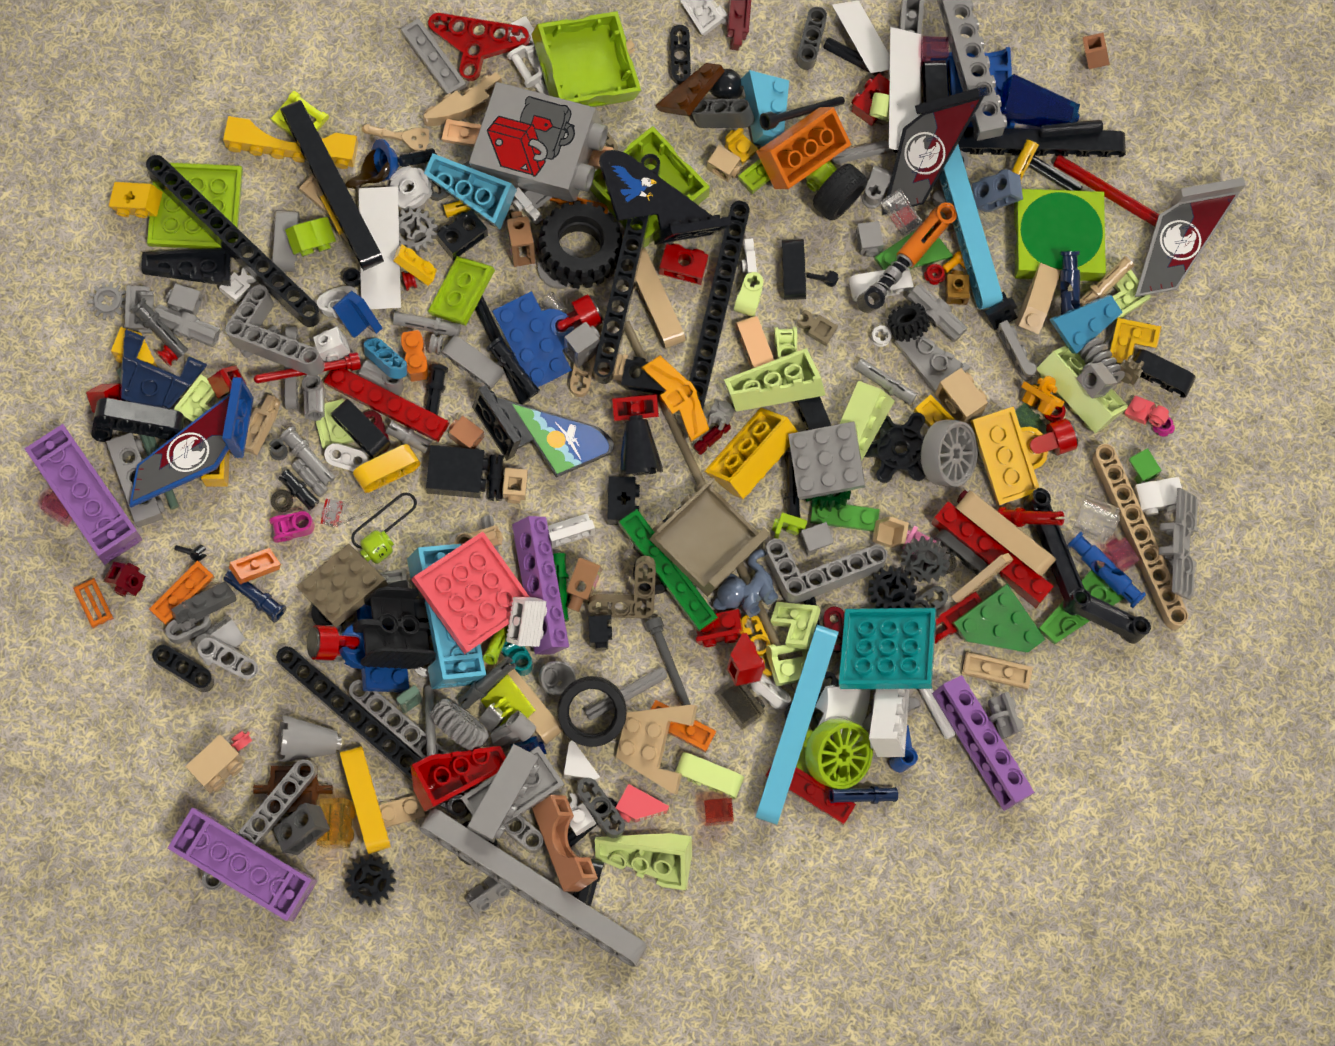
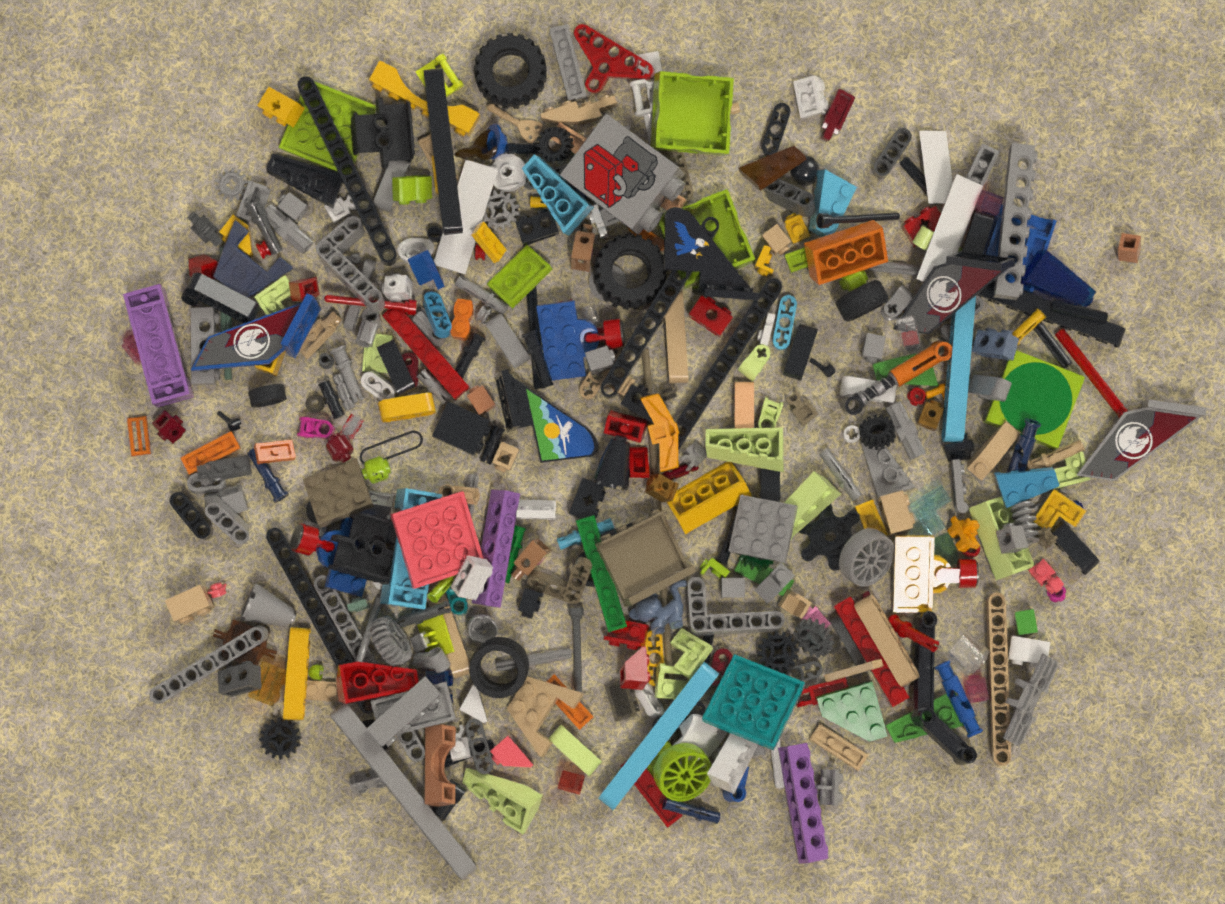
camera: 30 degrees right, 10 degrees up
(94, 352) = (205, 229): none -> dark grey gear
(225, 507) = (267, 395): none -> black tyre
(242, 865) = (183, 692): medium lavender plate -> none
(273, 182) = (397, 132): none -> black piece
(326, 537) = (339, 447): none -> dark red head
(374, 57) = (518, 94): none -> black tyre
(383, 792) = (314, 671): none -> lime hinge
(462, 136) = (565, 144): none -> black tyre
(625, 545) = (574, 537): none -> medium azure pin
(666, 442) = (639, 462): none -> red slope
(671, 357) = (669, 393): none -> clear smoke plate
(699, 459) = (661, 488): none -> pearl gold brick
(719, 195) = (764, 258): none -> yellow bracket
(756, 231) = (792, 309): none -> medium azure beam
(859, 517) = (774, 583): none -> light grey slope
(992, 384) = (926, 508): none -> clear light blue brick
(1010, 234) = (989, 387): none -> light grey beam

